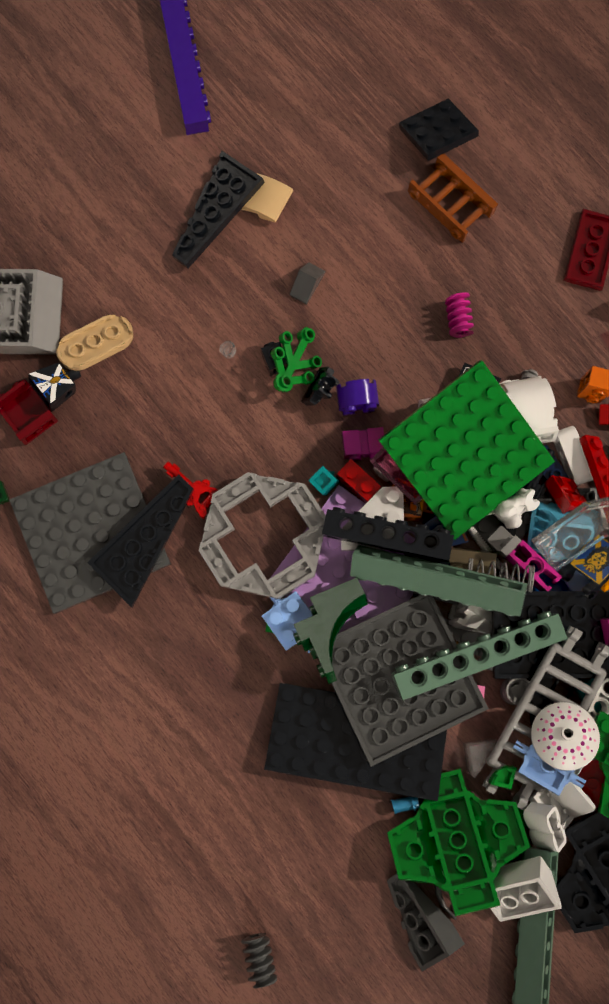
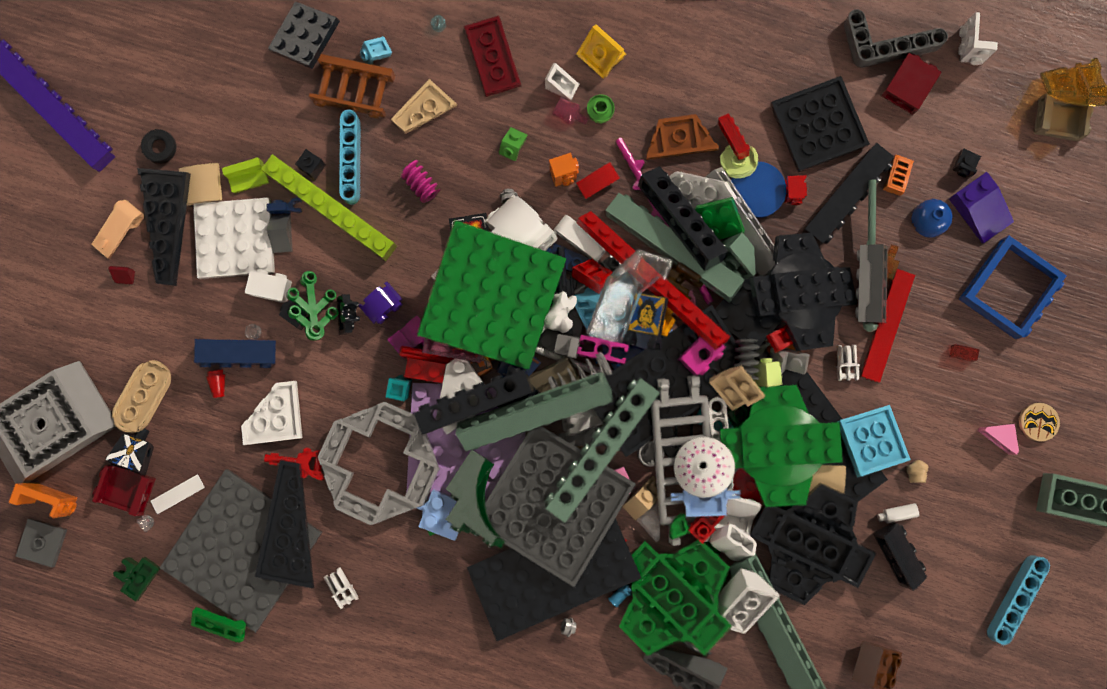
camera: 25 degrees left, 5 degrees up
(24, 452) = (145, 522): none -> clear hinge
(25, 584) = (218, 625): none -> green plate
(67, 446) = (177, 494): none -> white sticker
(148, 230) = (122, 275): none -> dark red slope
(155, 624) = (338, 584): none -> white arm
(167, 371) = (216, 382): none -> red cone
(180, 183) = (122, 218): none -> light nougat door
(197, 435) = (275, 416): none -> white plate
(200, 356) = (234, 352): none -> dark blue wedge
(251, 133) = (150, 138): none -> black tyre
(263, 260) = (232, 238): none -> white plate
(267, 318) = (268, 286): none -> white brick
(310, 214) = (245, 175): none -> lime panel
(323, 260) = (280, 207): none -> dark blue plate
(337, 801) = (568, 627): none -> light grey plate
(360, 459) = (415, 353): none -> red axle
(365, 287) = (329, 207): none -> lime brick
(372, 240) = (310, 164): none -> black brick
(413, 247) = (347, 148): none -> medium azure beam
(483, 728) = (642, 499): none -> tan slope
(492, 180) = (375, 50): none -> medium azure bracket
(502, 254) = (422, 107): none -> tan wing
(528, 792) = (703, 526): none -> red slope
(562, 334) = (512, 143): none -> bright green bracket
(564, 195) = (441, 25): none -> clear light blue hinge

